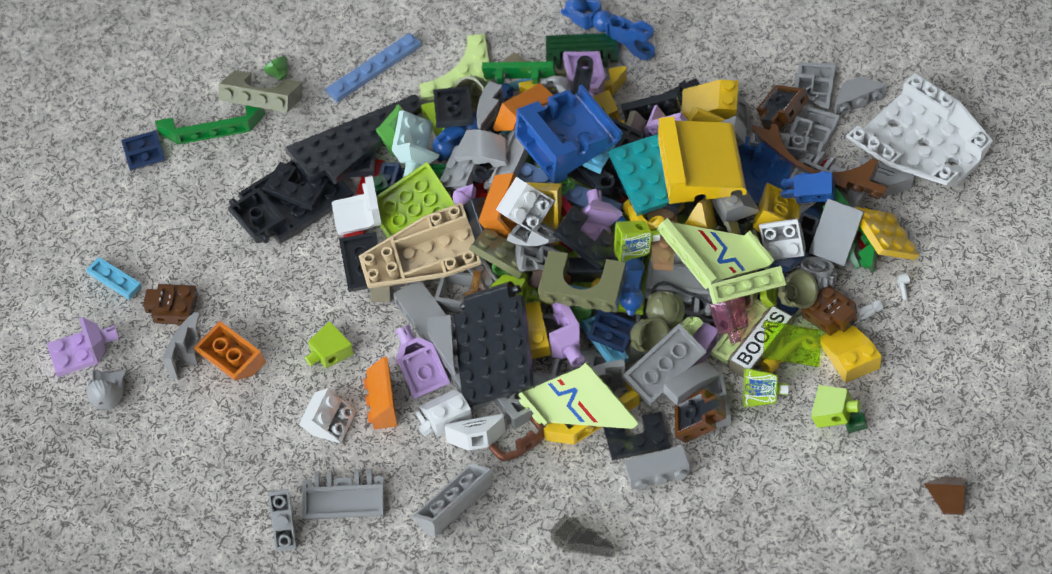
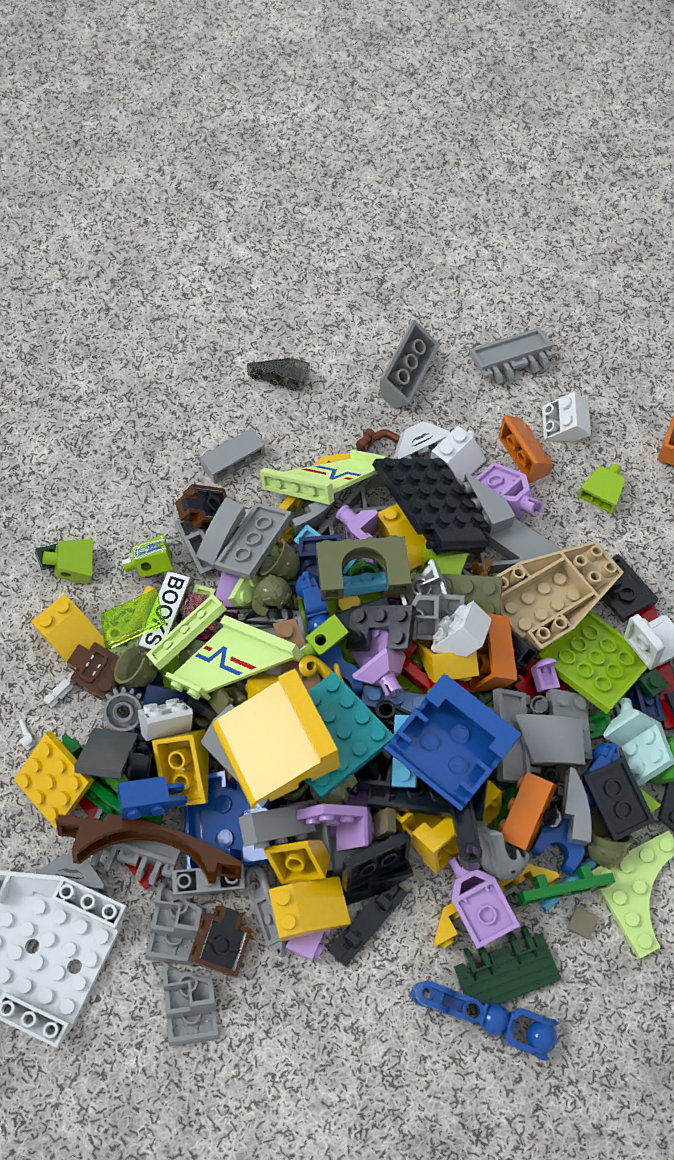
camera: 155 degrees right, 10 degrees up
(282, 519) = (554, 313): light grey slope -> none
(651, 441) = (247, 487): black plate -> none
(857, 94) = (131, 998): light grey slope -> none

